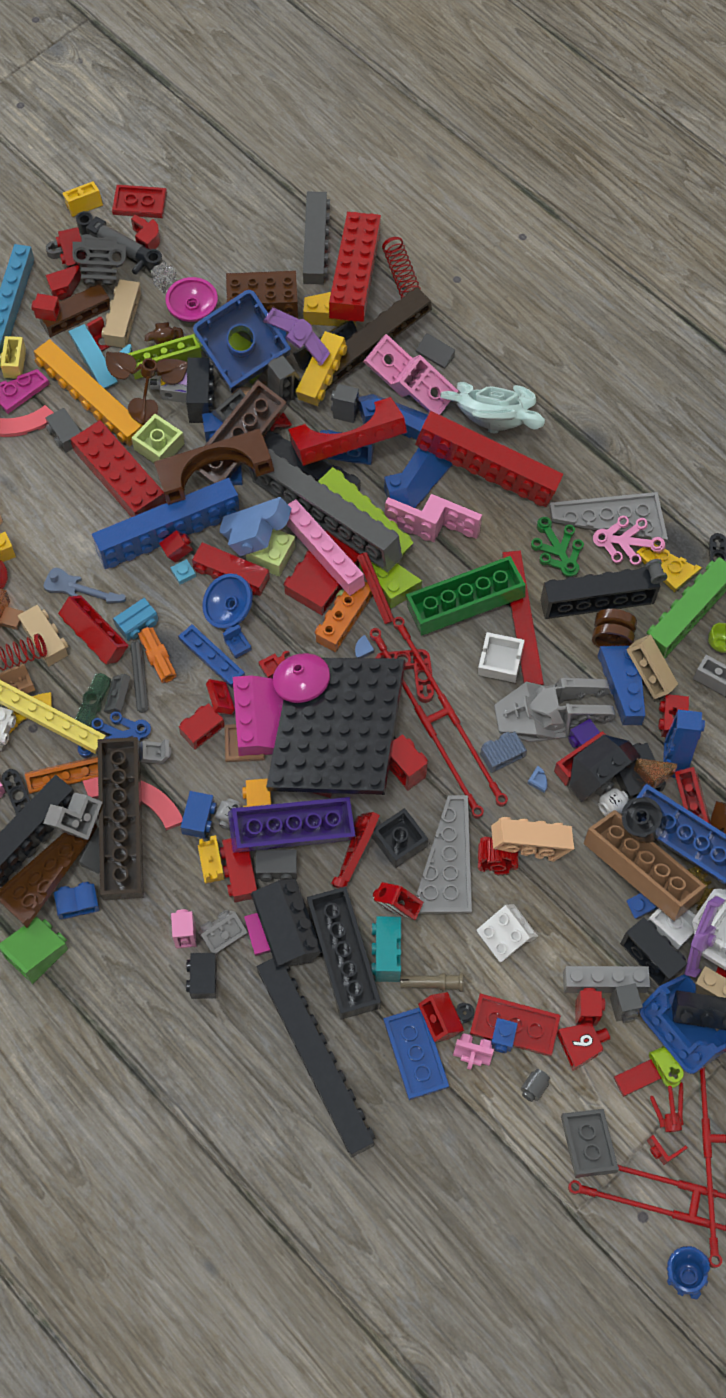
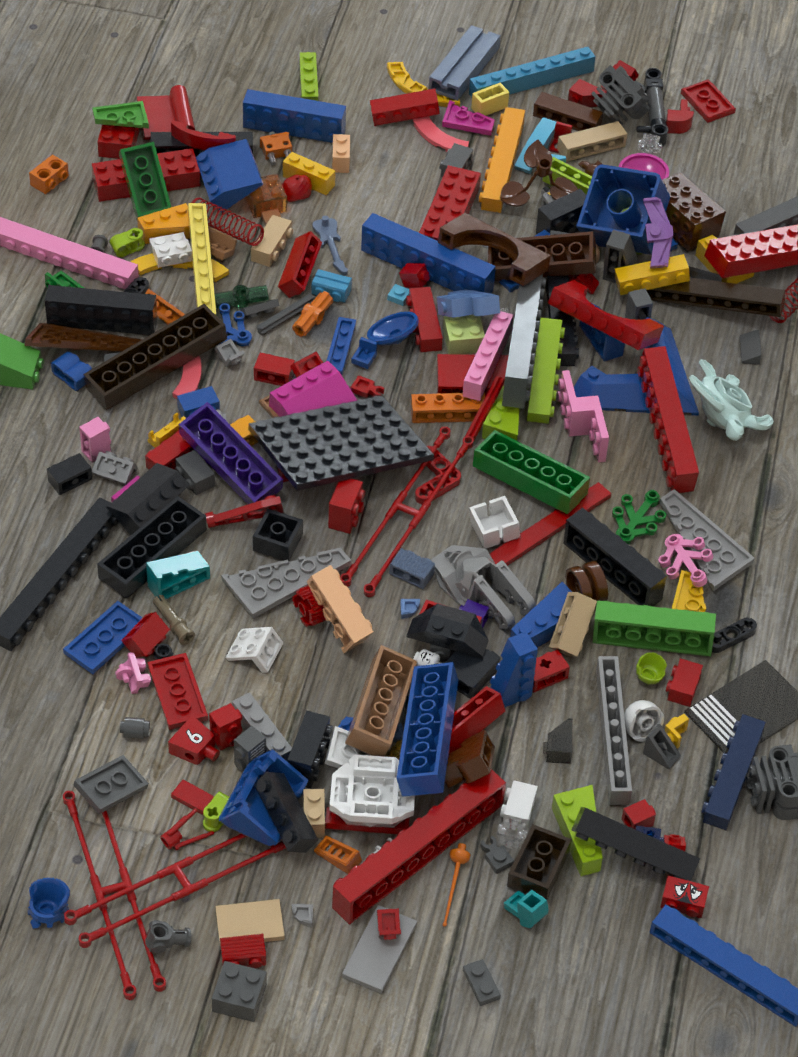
camera: 55 degrees right, 15 degrees down
(46, 307) = (548, 91): red brick -> none
(77, 819) = (129, 327): light grey brick -> none
(82, 198) = (673, 66): yellow hinge -> none
(157, 439) = (498, 213): yellowish green brick -> none
(302, 684) = (364, 403): dark pink dish -> none
(363, 648) = (429, 436): medium blue tile -> none
(389, 895) = (221, 557): red torso -> none
(409, 375) = (704, 335): bright pink bracket -> none
(503, 1035) = (160, 683): blue bracket -> none
(643, 808) = (414, 670): black brick -> none
(654, 771) = (473, 671): clear orange slope -> none
(656, 571) = (658, 573): dark grey bush -> none
(659, 1153) = (137, 843): red bracket -> none
(703, 937) = (340, 759): medium lavender plate -> none

